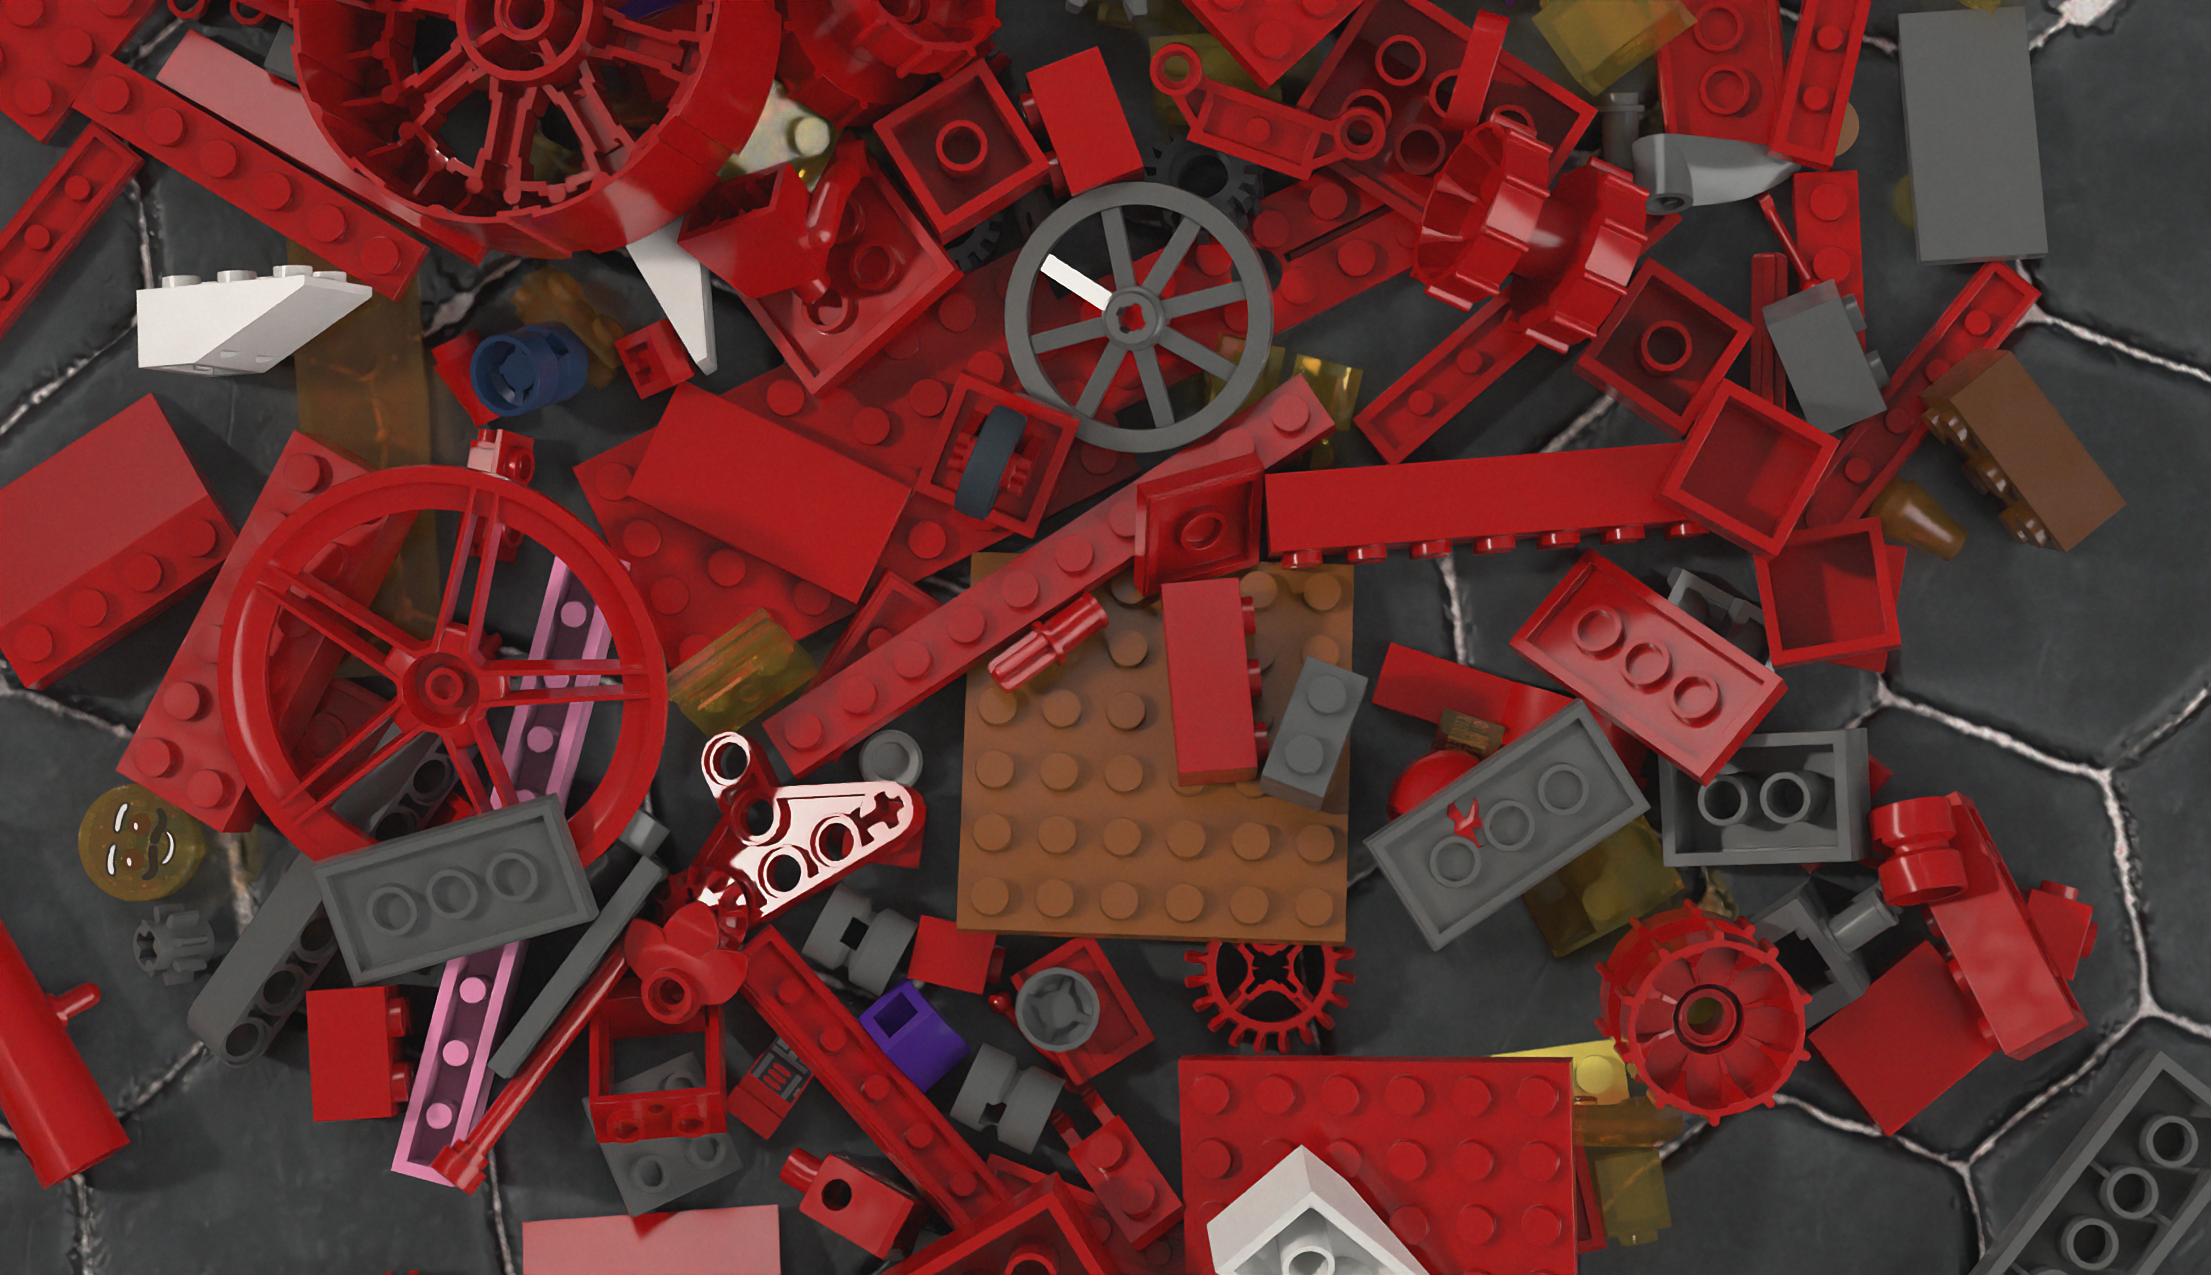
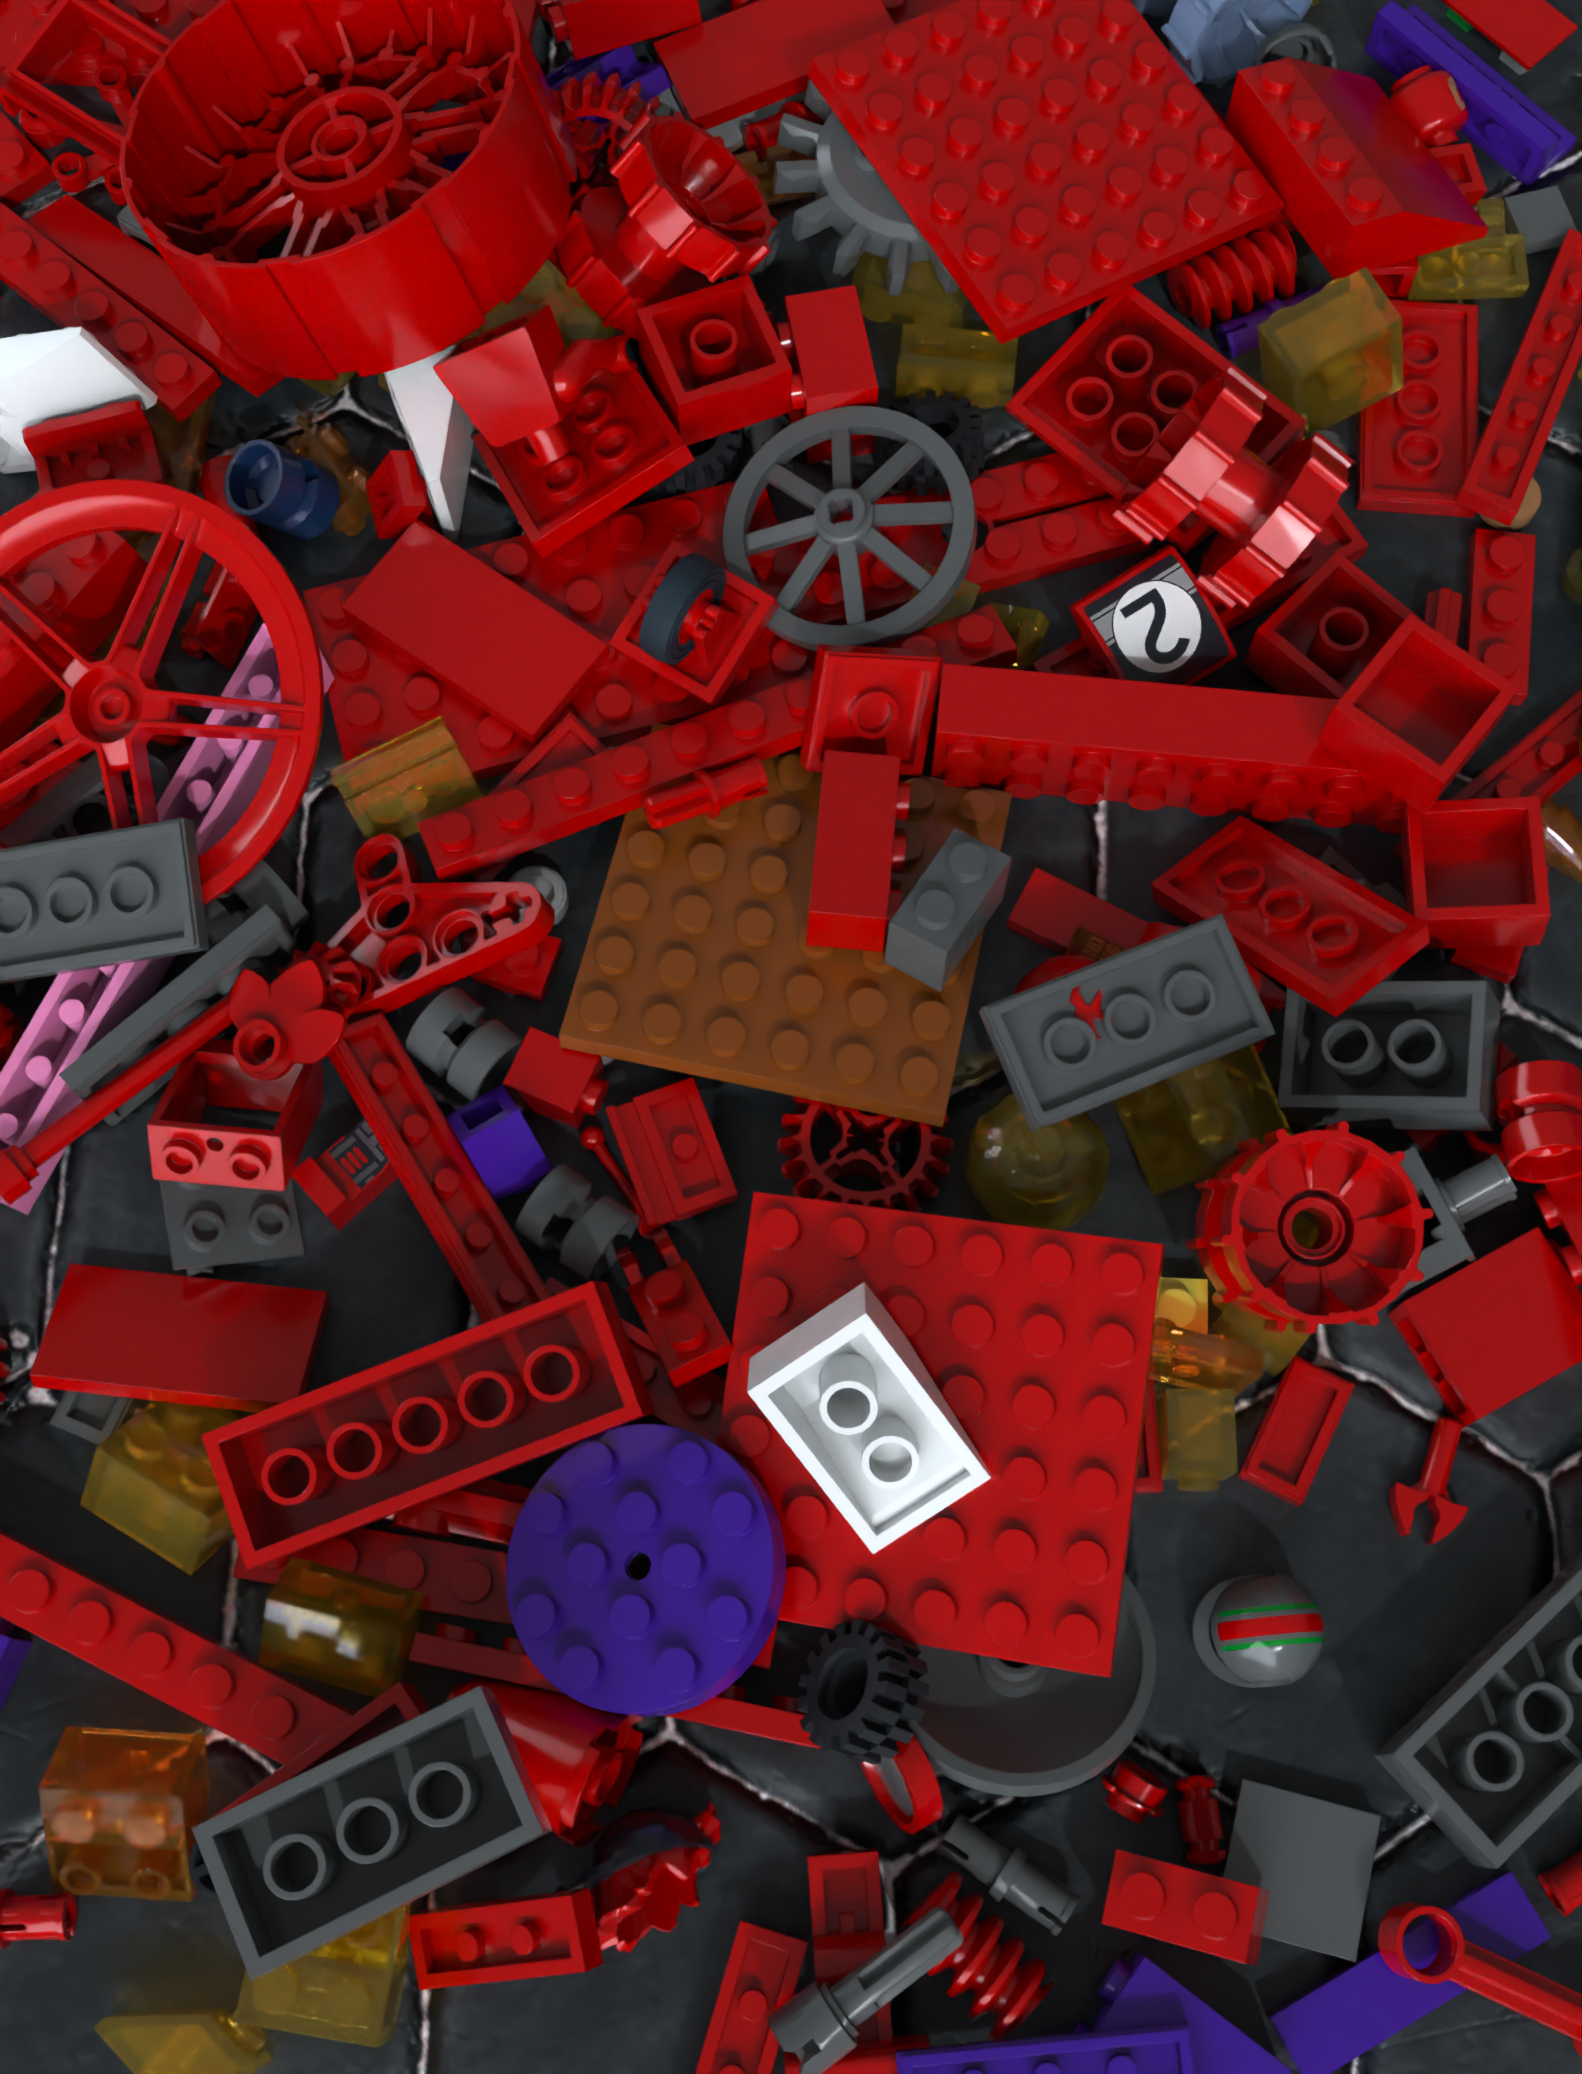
camera: 10 degrees right, 15 degrees down
(328, 374) = (96, 446): none -> red bracket
(880, 1214) = (401, 1291): red torso -> none
(1057, 1009) = (642, 1132): dark grey wheel -> none
(1258, 125) = (991, 383): red plate -> none
(1440, 986) = (1036, 1177): none -> clear yellow piece
(1471, 373) = (1154, 624): none -> slope
(1476, 71) = (1200, 357): red beam -> none
(1702, 171) = (1400, 500): dark grey piece -> none
(1724, 1171) = (1295, 1431): none -> red tile
(1767, 209) = (1485, 619): red hinge -> none
(1825, 358) = (1504, 642): dark grey brick -> none
(1858, 1194) = (1431, 1485): none -> red bar

